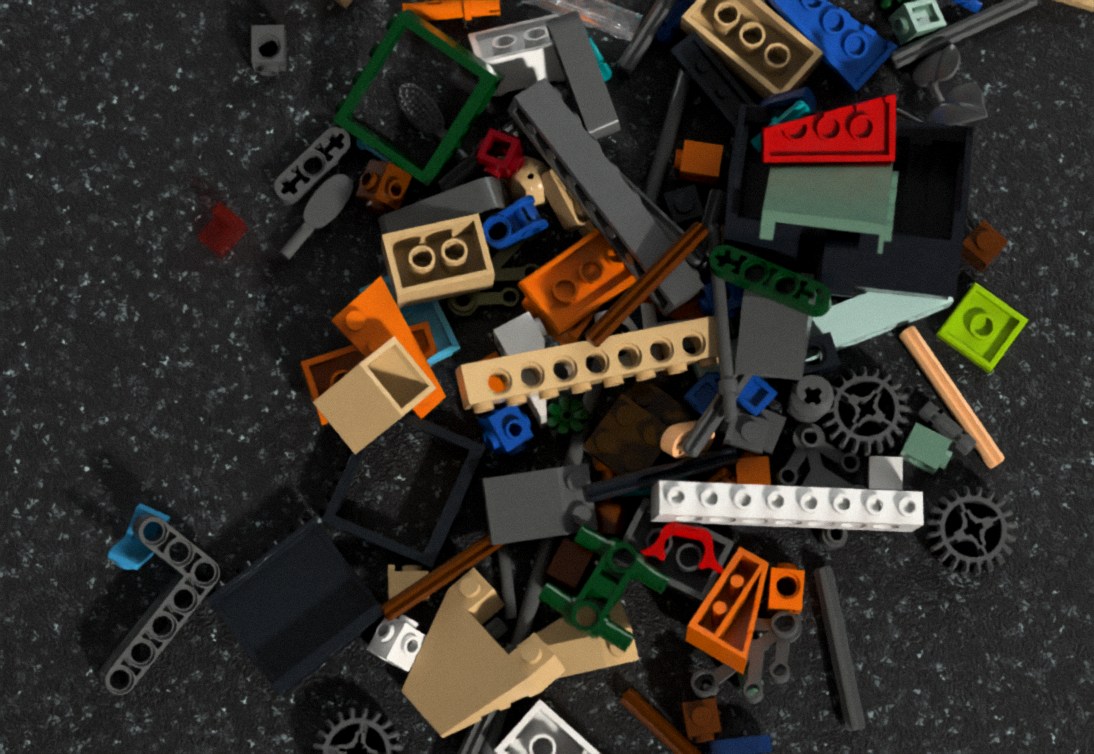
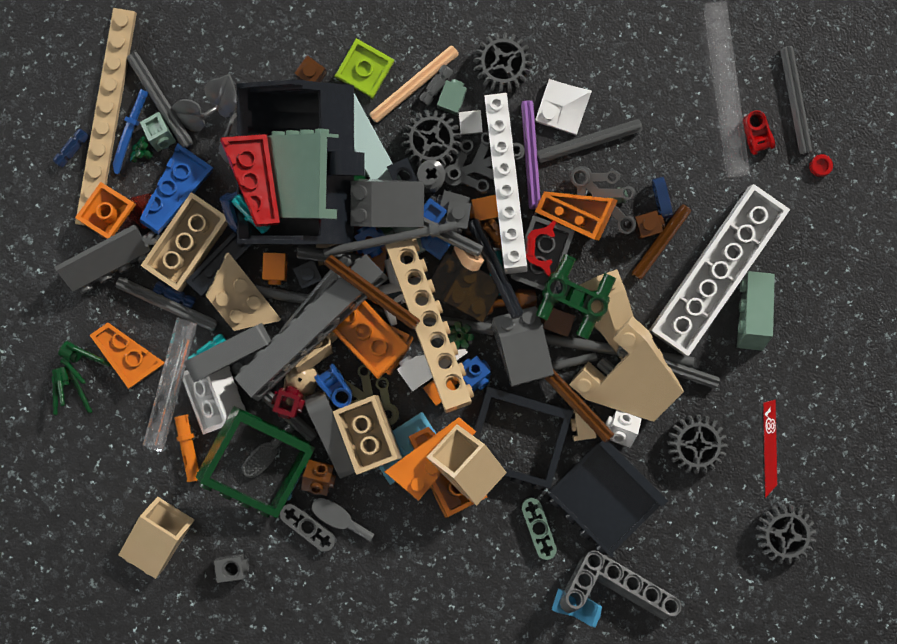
camera: 90 degrees left, 10 degrees up
(222, 231) = (360, 581): clear red panel -> none
(241, 513) = (538, 546): none -> sand green beam
(660, 104) = (239, 298): none -> tan wing
(772, 276) = (363, 210): dark green beam -> none
(778, 602) = (565, 175): orange brick -> none
(832, 557) = (530, 153): none -> medium lavender axle
(895, 614) = (563, 106): none -> white plate

